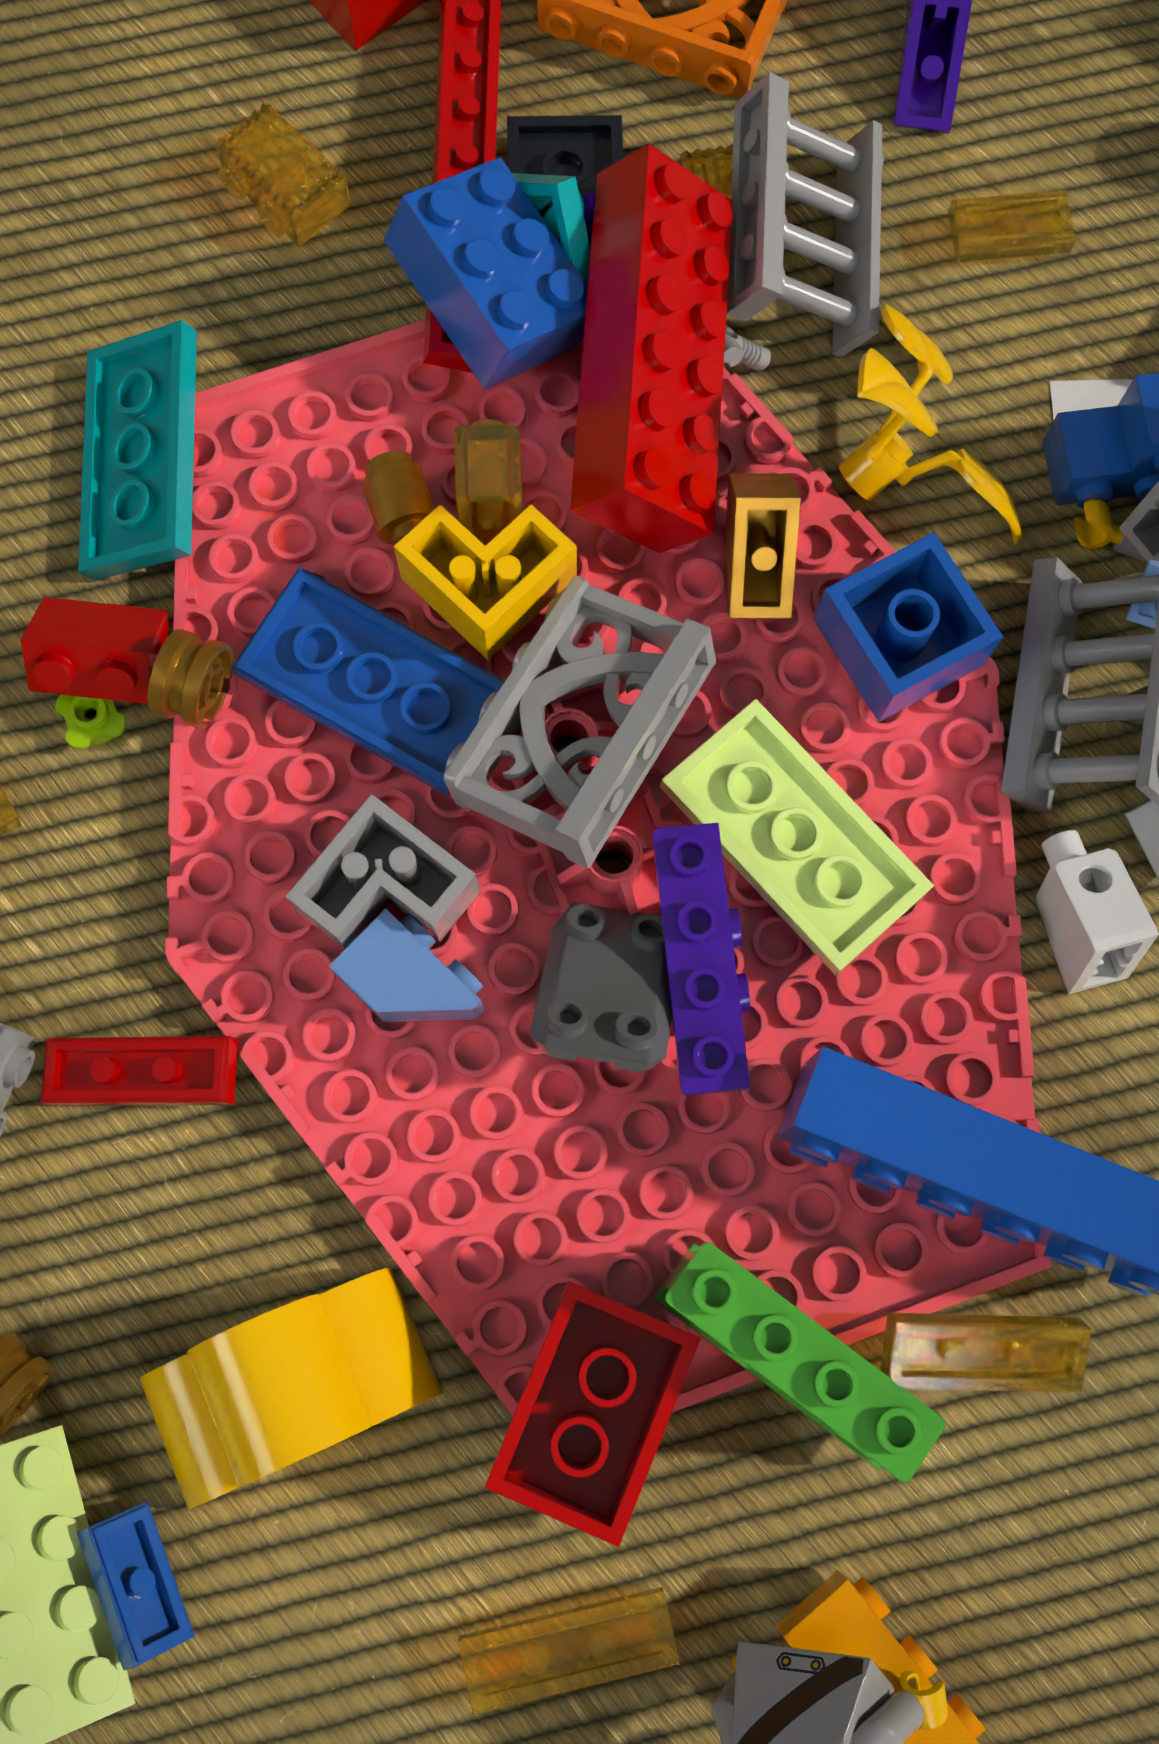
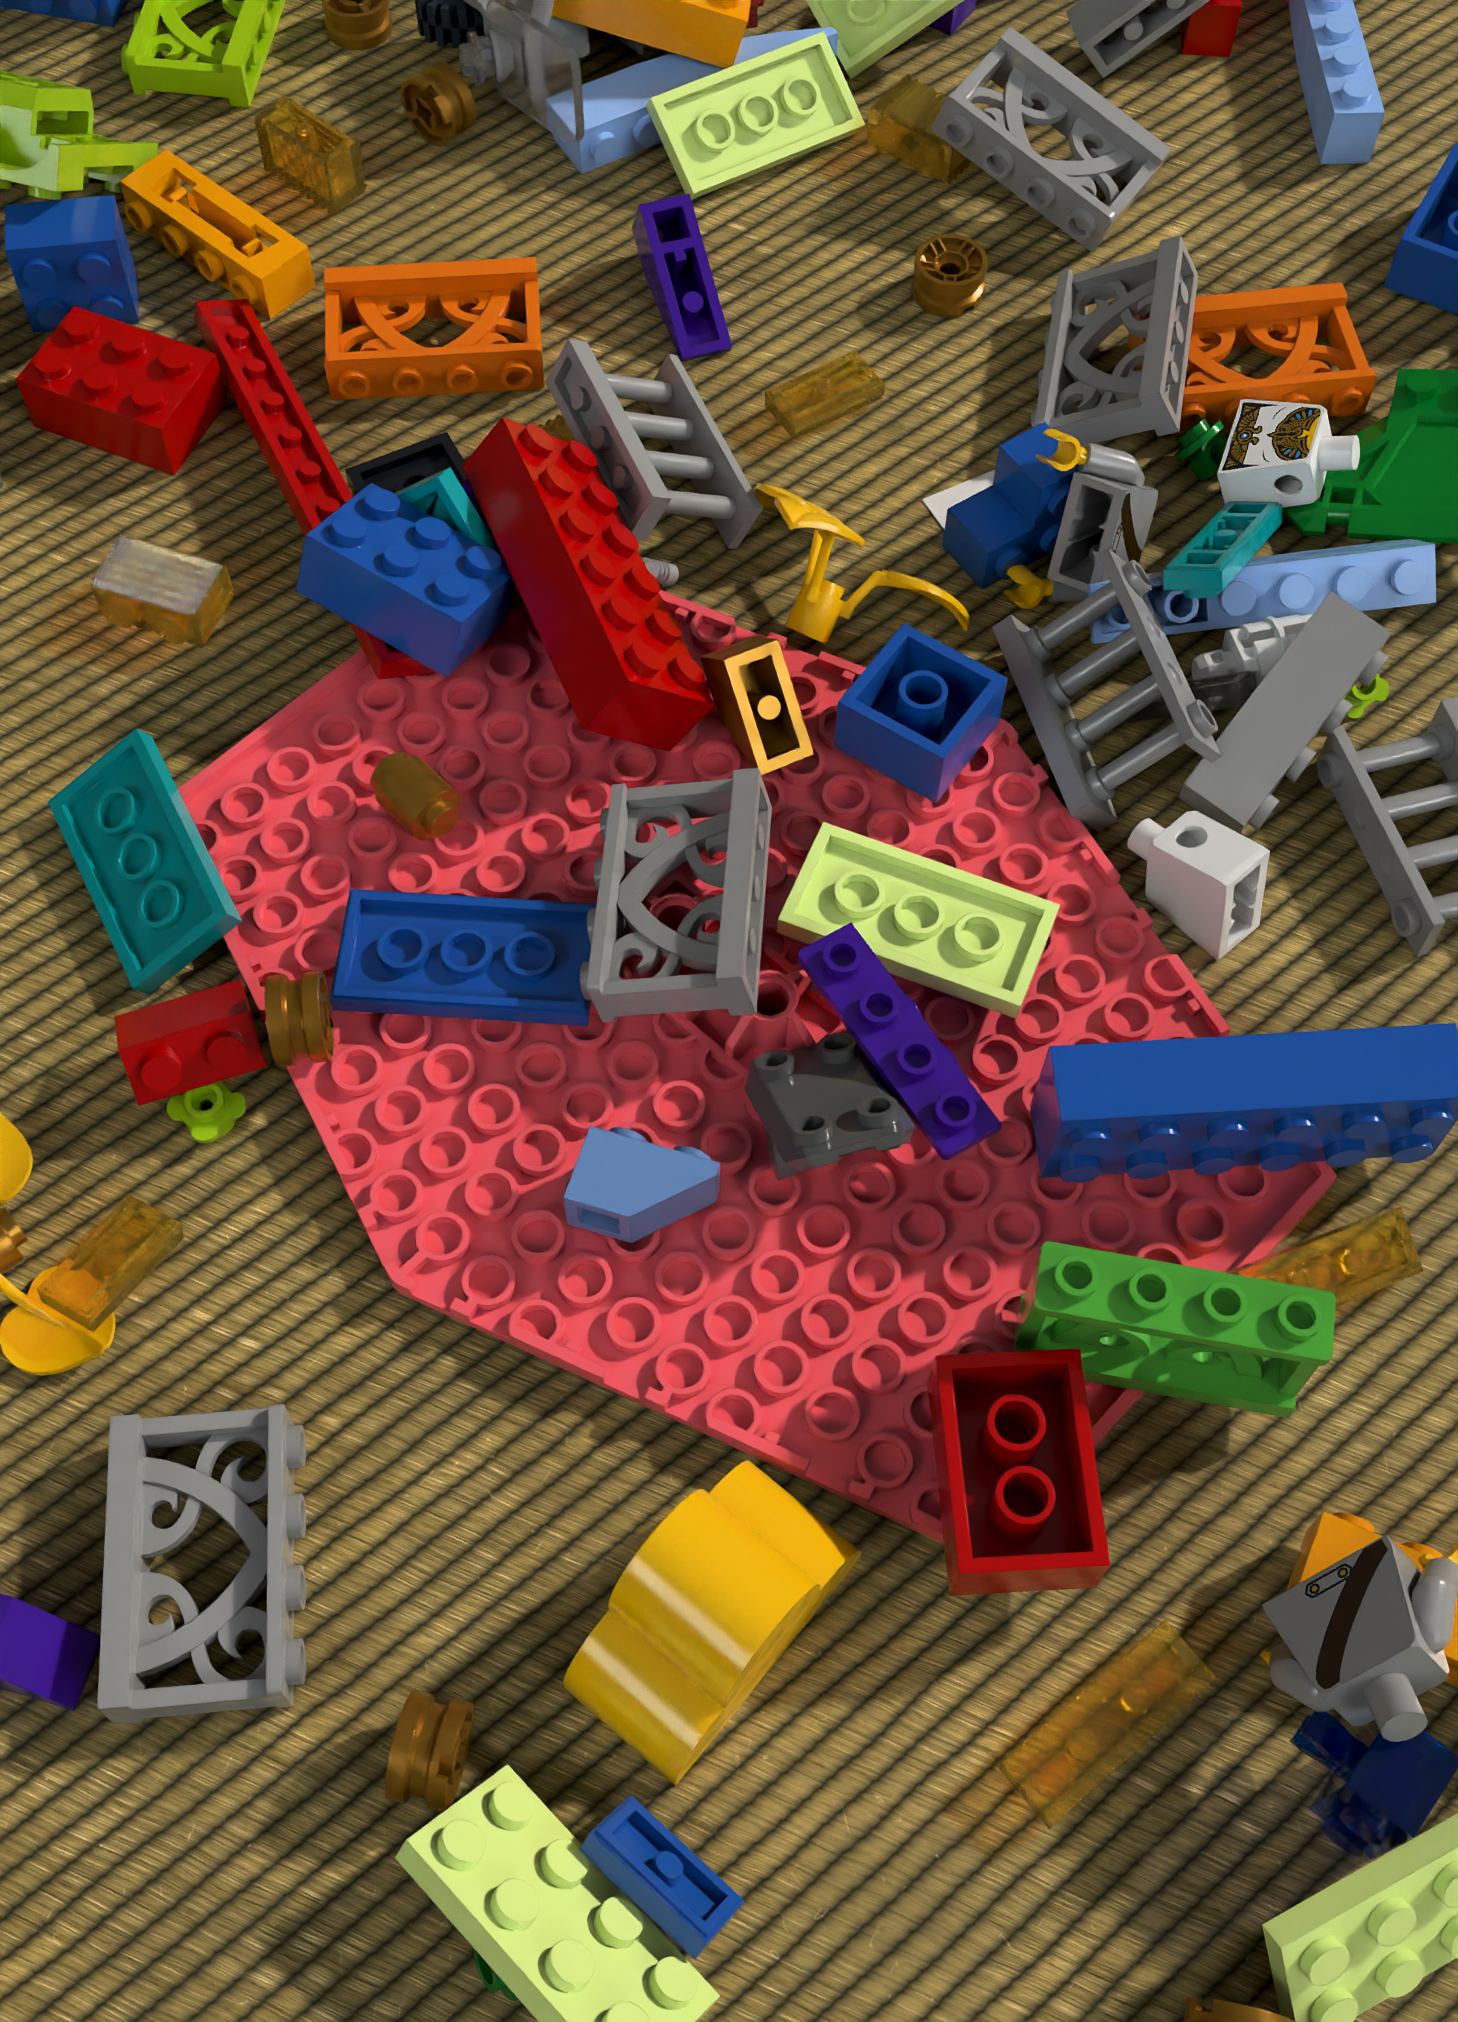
camera: 25 degrees left, 15 degrees down
(140, 1071) = (417, 1396): red tile -> none
(380, 862) = (564, 1090): light grey brick -> none
(488, 477) = (498, 745): clear yellow brick -> none
(488, 588) = (530, 829): yellow brick -> none

